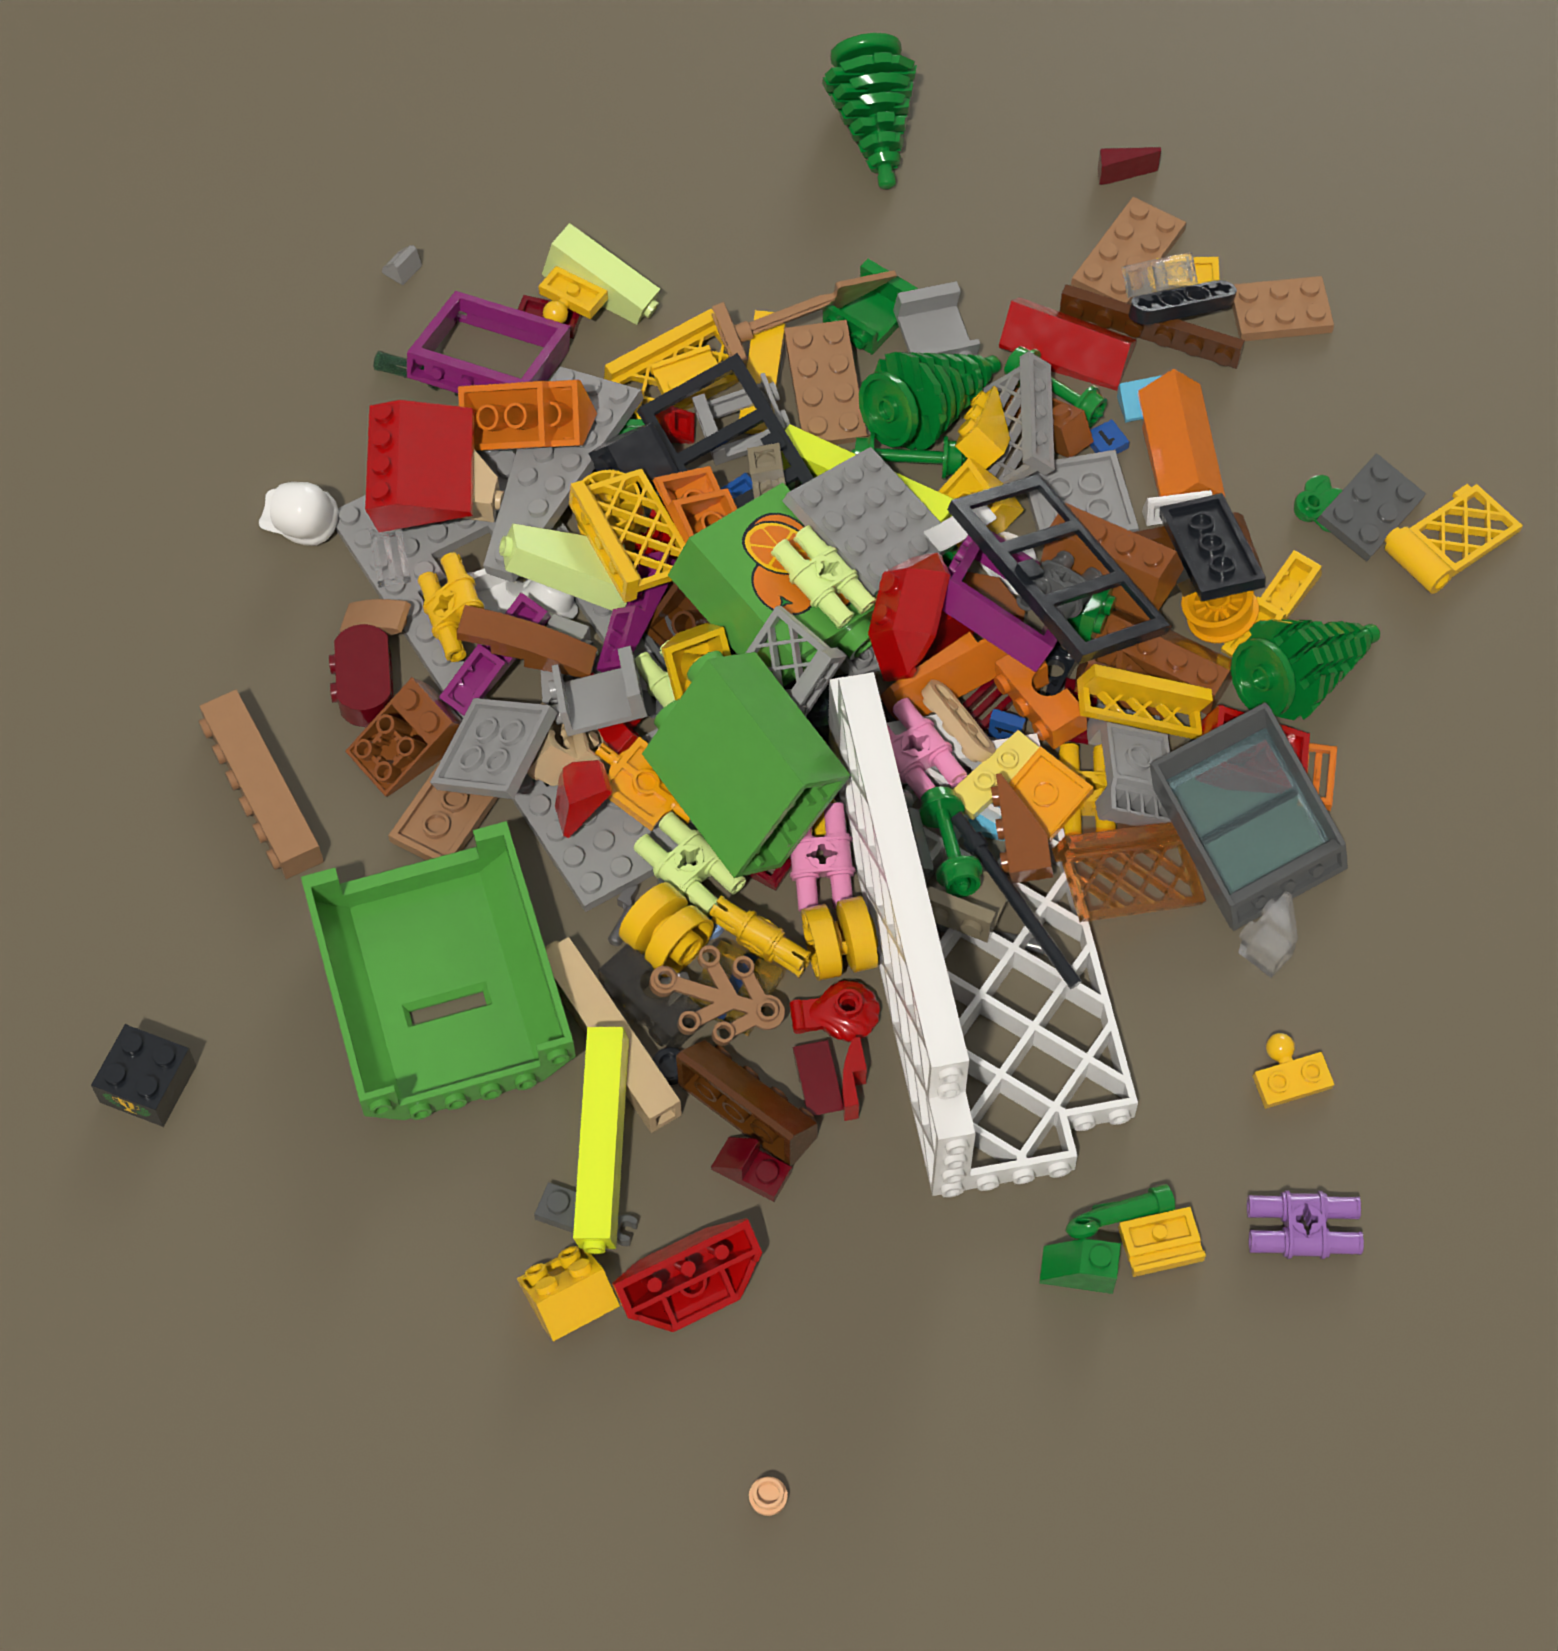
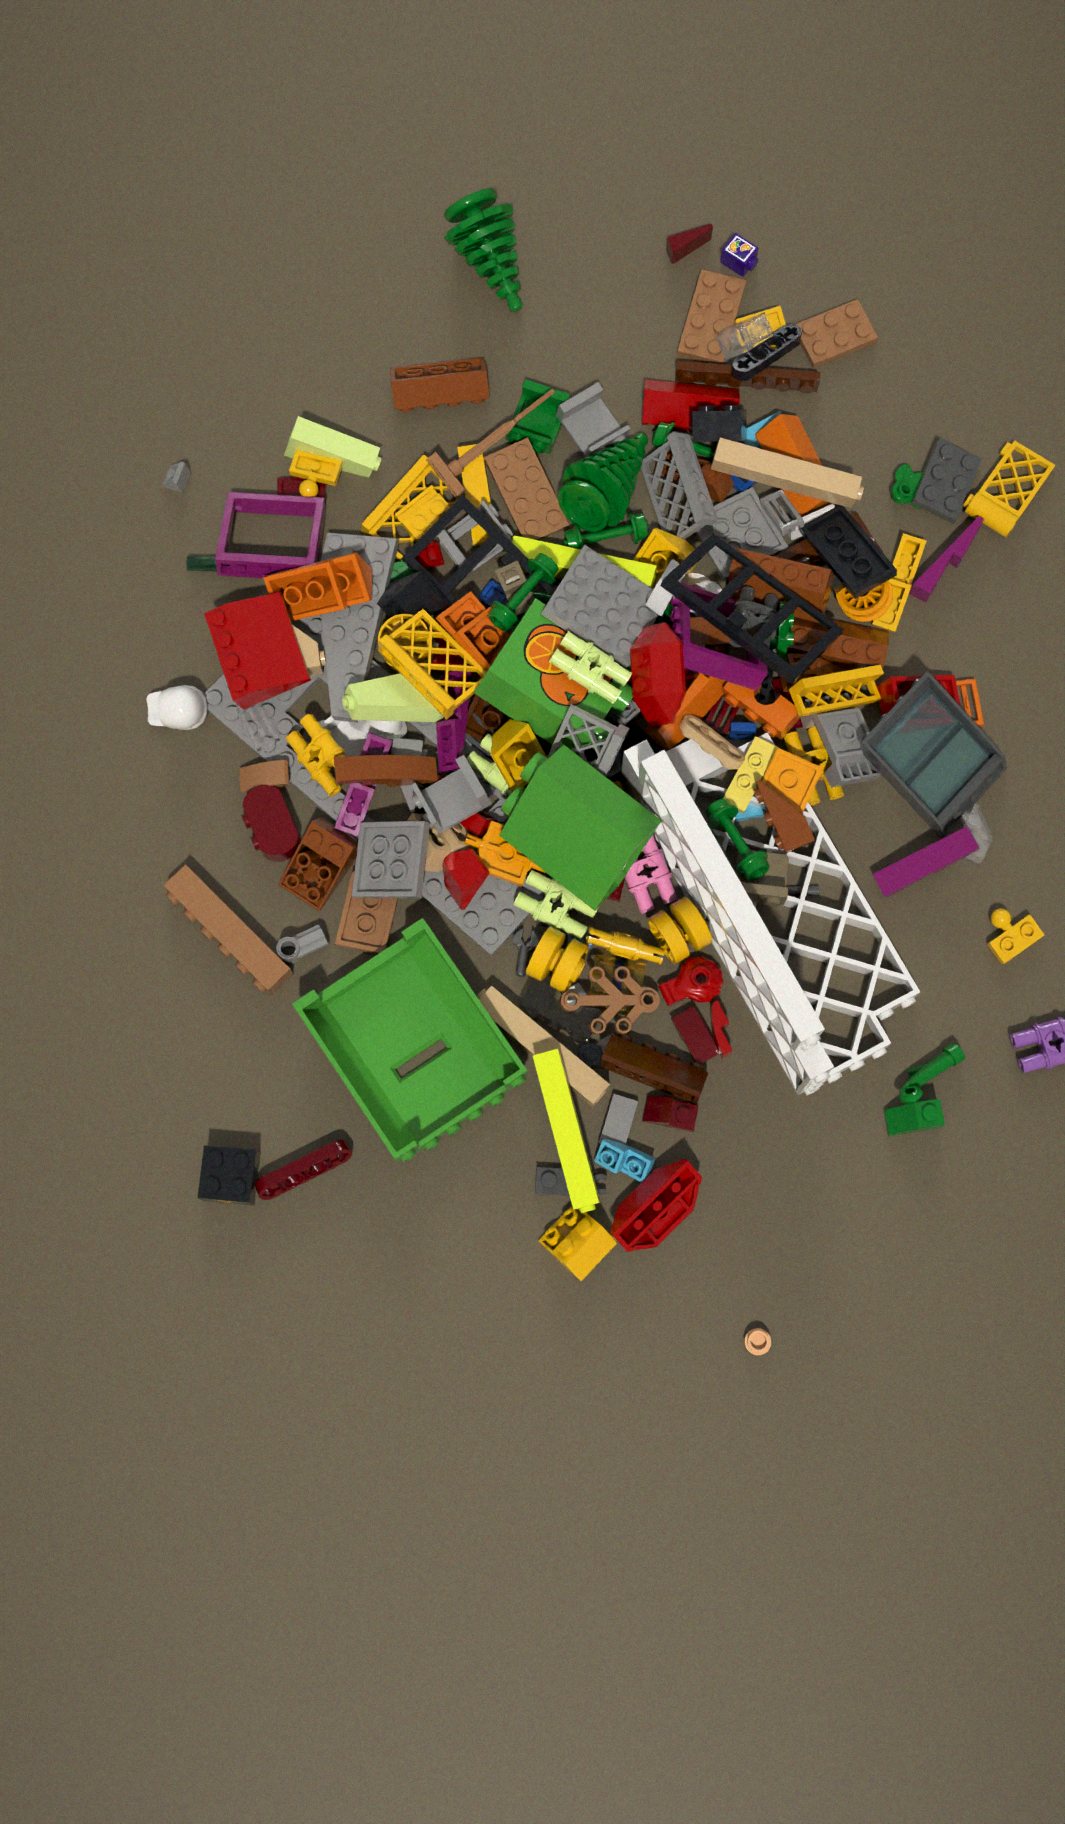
camera: 15 degrees left, 15 degrees up
(243, 1101) = (304, 1169): none -> dark red beam
(347, 826) = (304, 943): none -> light grey piece
(667, 1204) = (624, 1158): none -> medium azure slope
(677, 1159) = (619, 1119): none -> light grey tile
(760, 242) = (439, 384): none -> dark orange slope
(807, 459) = (542, 568): none -> green piece
(920, 749) = (703, 771): bright pink pin -> none
(977, 845) = (755, 836): black bar -> none
(985, 431) = (655, 499): yellow slope -> none
(1092, 361) = (714, 424): none -> black brick
(1117, 844) = (848, 805): clear orange fence -> none
(1144, 497) = (789, 525): none -> light grey tile
(1160, 435) = (787, 473): none -> tan brick
(1161, 1241) = (962, 1084): yellow plate -> none
(1186, 192) = (739, 255): none -> dark purple brick
(1205, 943) = (926, 861): none -> magenta slope
(1297, 663) = (933, 627): green plant -> none
(1353, 592) = (953, 555): none -> magenta slope

